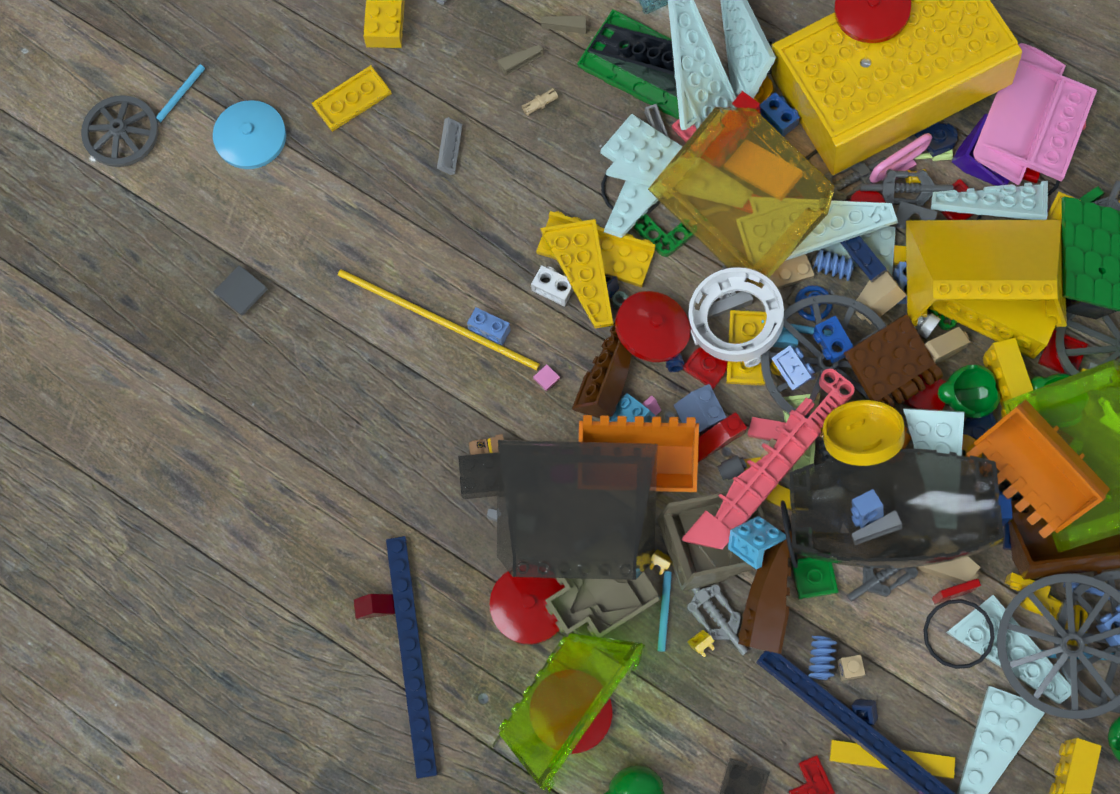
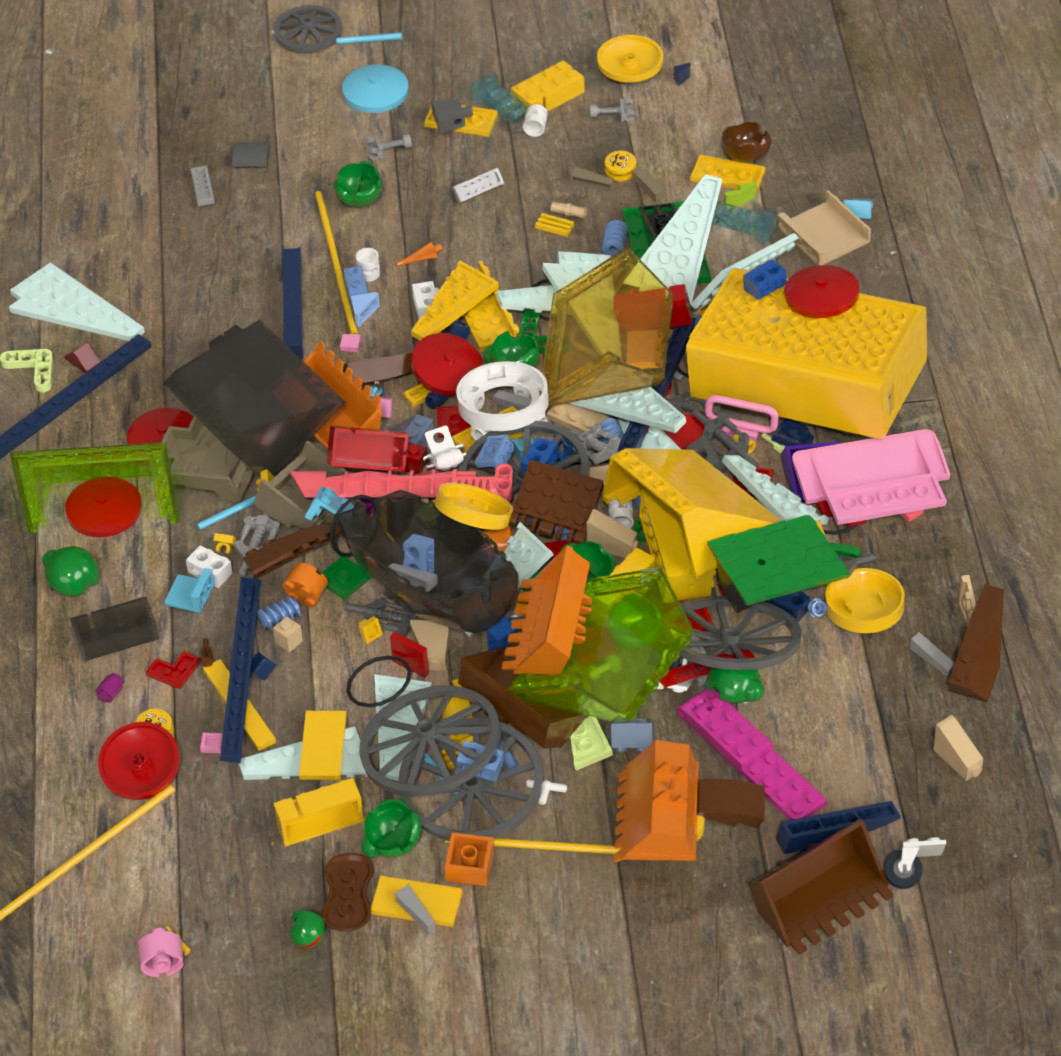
camera: 50 degrees right, 25 degrees down
(244, 357) = (202, 185): none -> light grey plate
(282, 573) = (64, 301): none -> light aqua wing
(340, 648) = (9, 361): none -> yellowish green beam
(342, 160) = (405, 141): none -> light grey bar
(347, 105) = (450, 114): none -> dark grey torso
(358, 53) = (497, 98): none -> clear light blue piece
(371, 236) = (358, 184): none -> green piece
(415, 48) = (535, 120): none -> white wheel
(462, 389) = (293, 300): none -> dark blue tile
(471, 297) = (369, 261): none -> white wheel
(492, 243) = (427, 252): none -> orange piece
(516, 340) = (364, 306): none -> light blue slope
(525, 27) = (620, 165): none -> yellow head
(542, 123) = (554, 225): none -> yellow tile
(608, 95) = (614, 237): none -> medium blue piece
(652, 380) = (417, 399): none -> yellow tile
(684, 268) = (515, 349): none -> green piece
(719, 464) = (367, 448): none -> red piece
(722, 680) = (206, 558): none -> white brick
(736, 711) = (191, 592): none -> medium azure bracket
(764, 406) = (443, 455): none -> white piece
(811, 616) = (305, 584): none -> orange brick
(817, 747) = (206, 654): none -> reddish brown axle
(824, 36) = (764, 279): none -> blue brick
(865, 282) = (589, 439): none -> light grey bar
(893, 599) = (370, 629): none -> yellow tile
(999, 728) = (323, 745): none -> yellow tile

